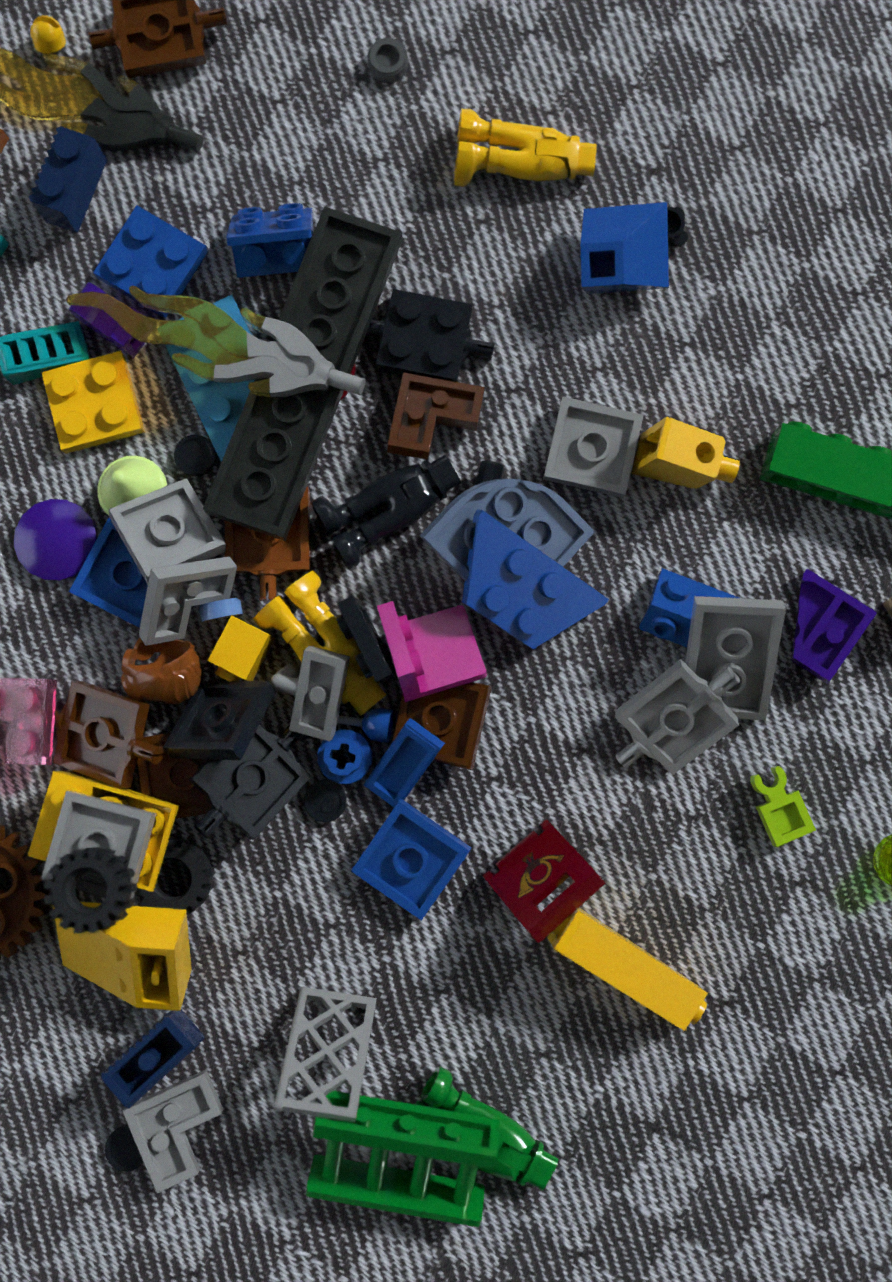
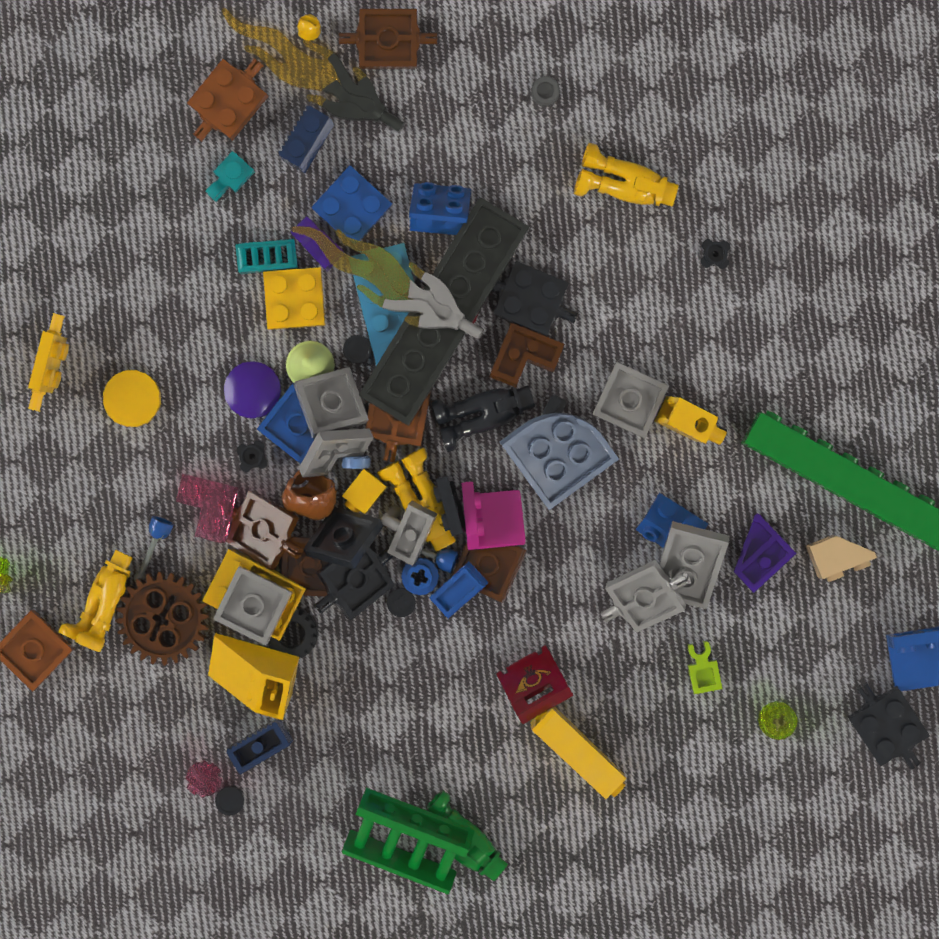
camera: 10 degrees right, 5 degrees up
(59, 632) = (256, 449): none -> black plate
(63, 893) = (227, 633): black tyre -> none
(79, 1125) = (203, 779): none -> clear pink gear
(160, 1127) = (256, 787): light grey plate -> none
(352, 1077) = (361, 794): light grey window -> none
(411, 859) = (451, 653): blue plate -> none
(522, 586) = (562, 488): blue wing -> none
(625, 248) = (680, 267): blue slope -> none

